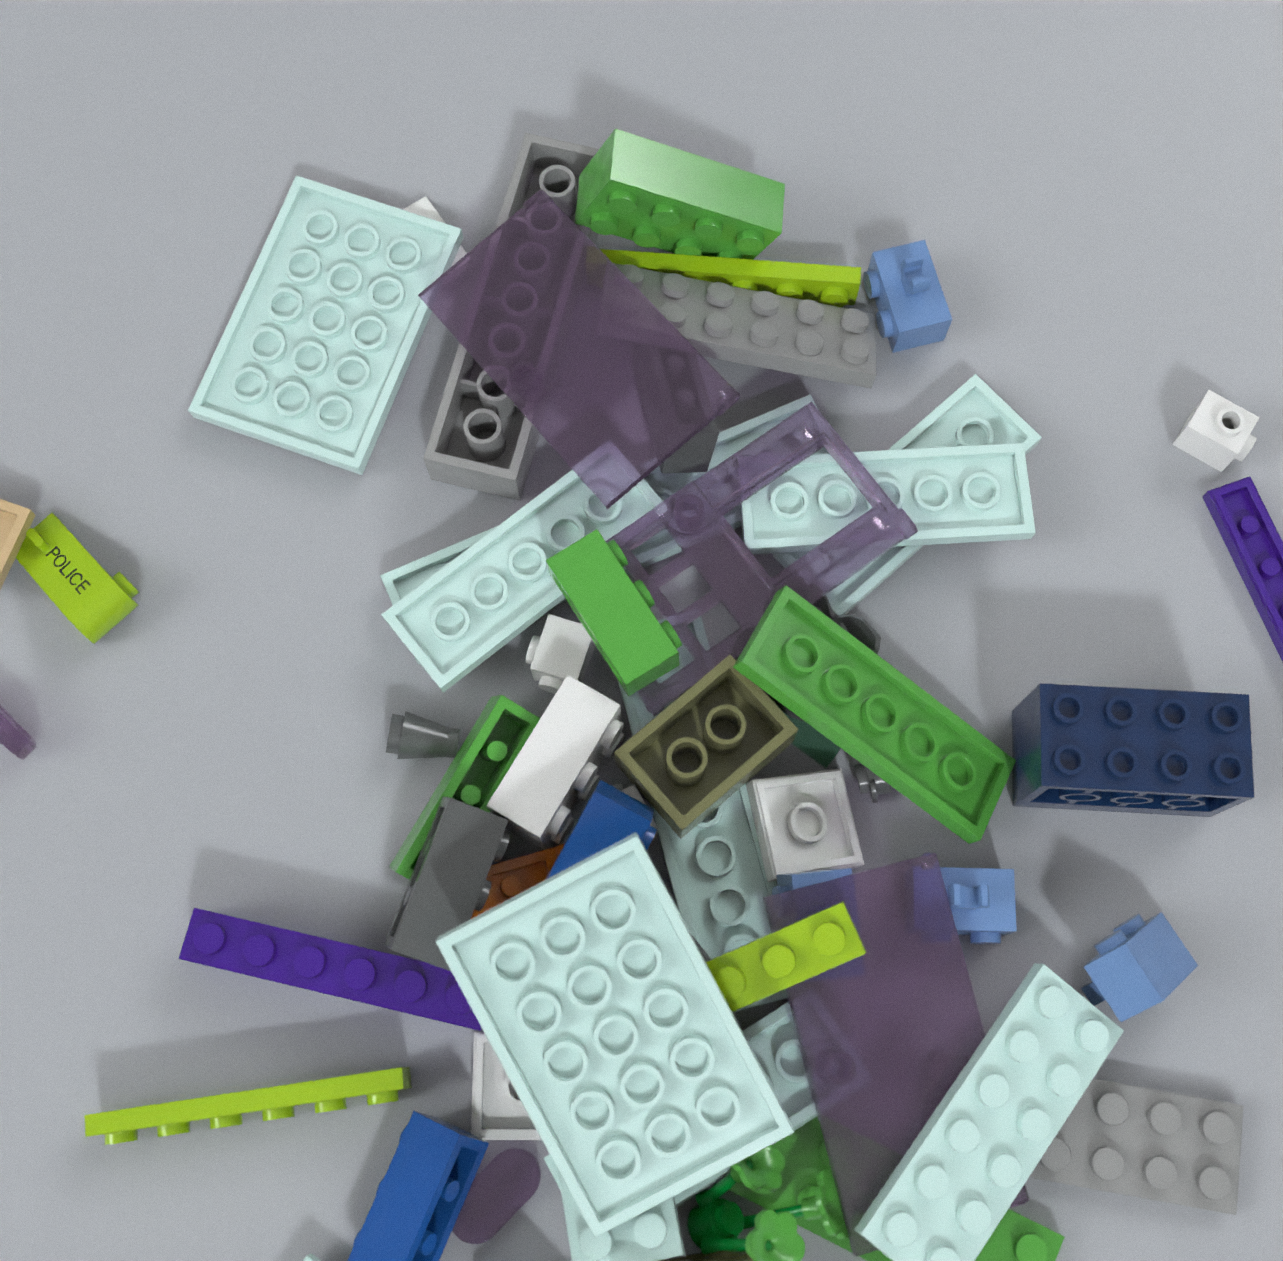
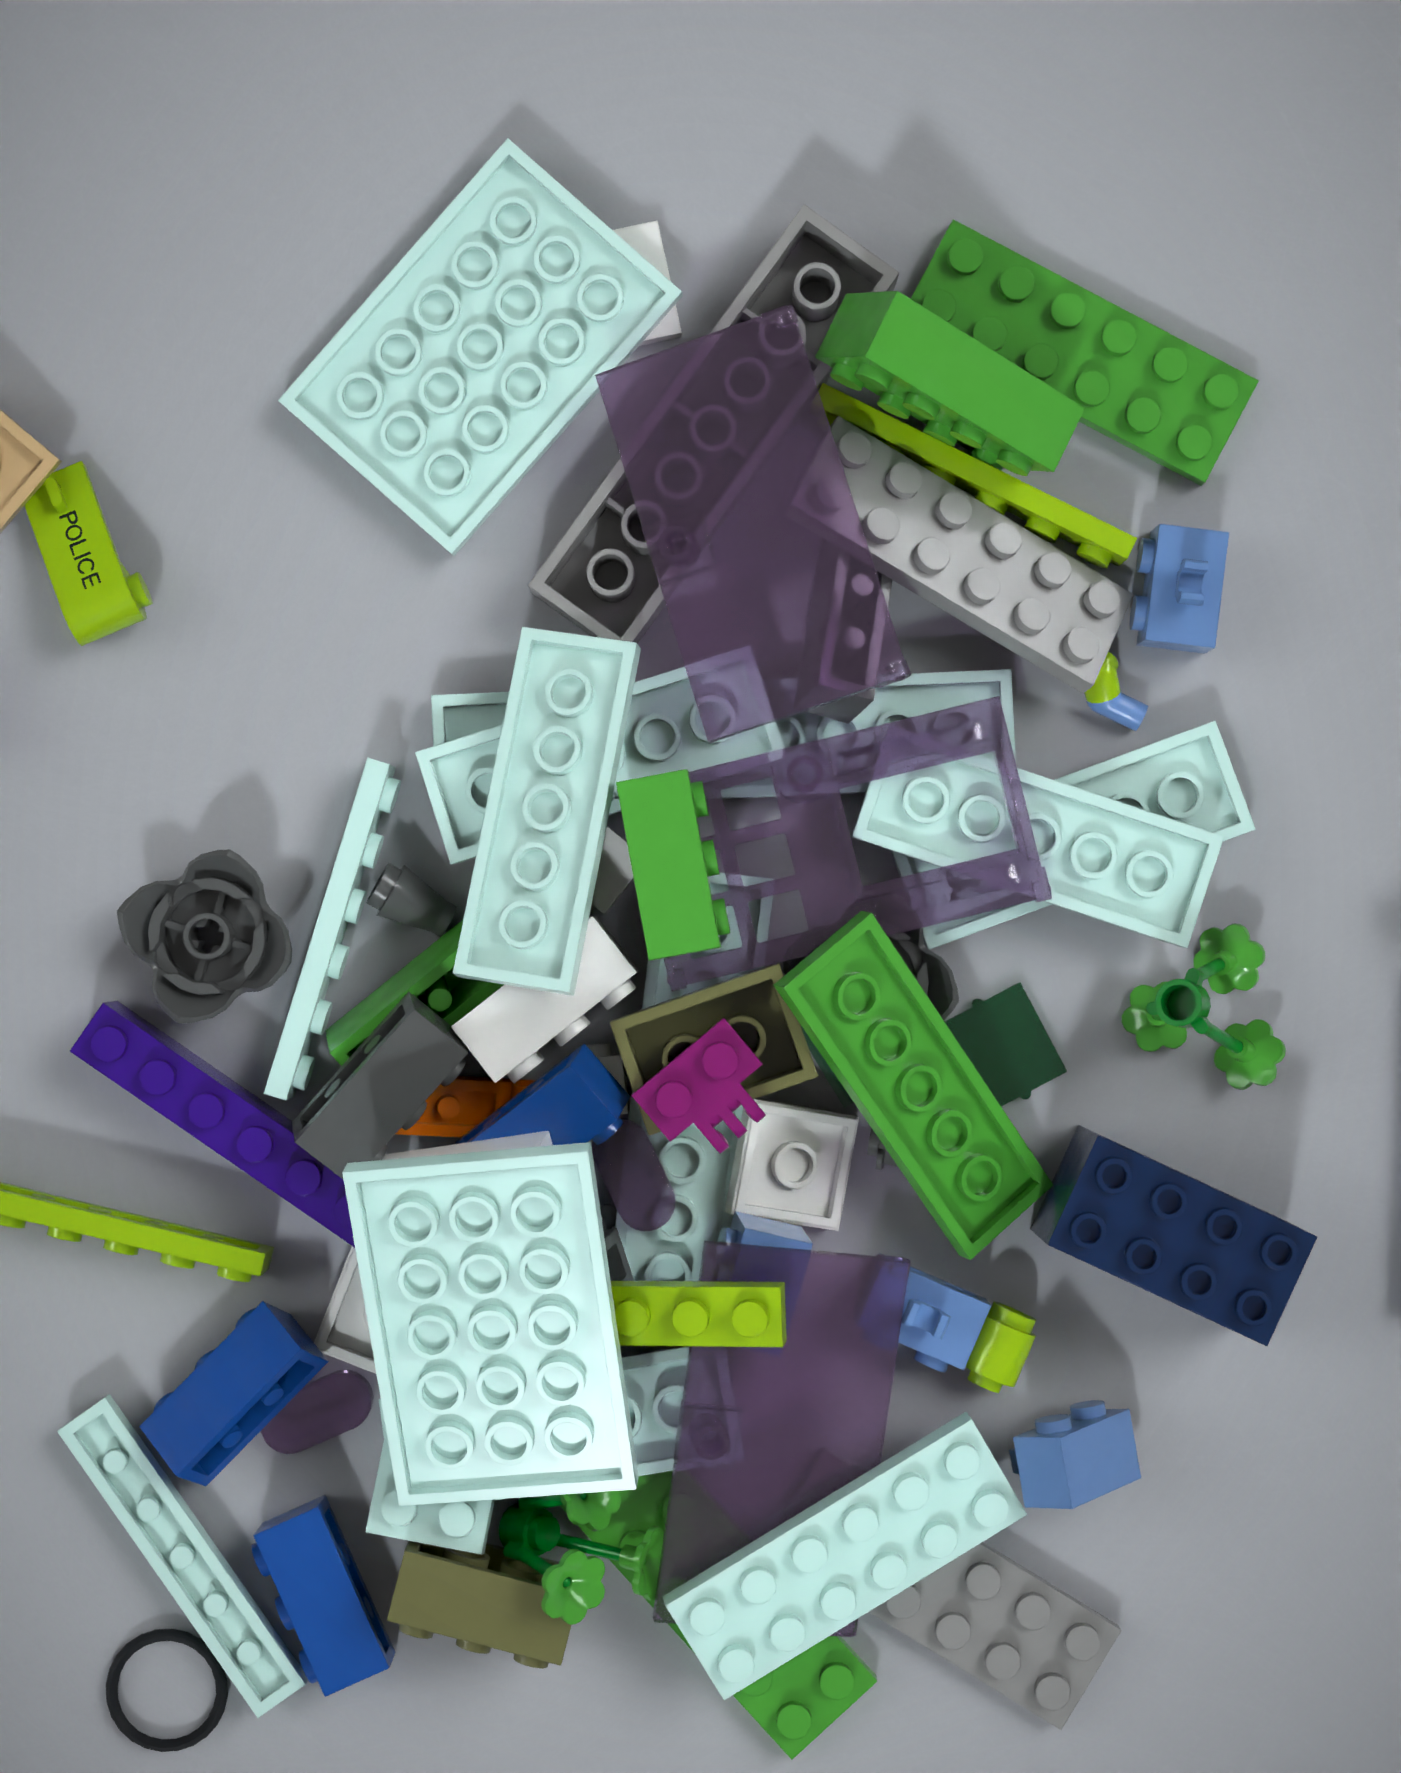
camera: 20 degrees right, 15 degrees up
(227, 823) = (163, 925): none -> dark grey brick
(367, 805) = (326, 954): none -> light aqua plate
(501, 613) = (547, 811): none -> light aqua plate
(692, 885) = (635, 1177): none -> clear purple tile
(711, 771) = (703, 1087): none -> magenta hinge
(823, 178) = (1123, 370): none -> bright green plate
(889, 393) = (1108, 701): none -> arm
(934, 665) = (1007, 1044): none -> clear green piece
(1037, 905) = (1001, 1348): none -> lime brick
(1056, 563) = (1164, 1012): none -> bright green plant

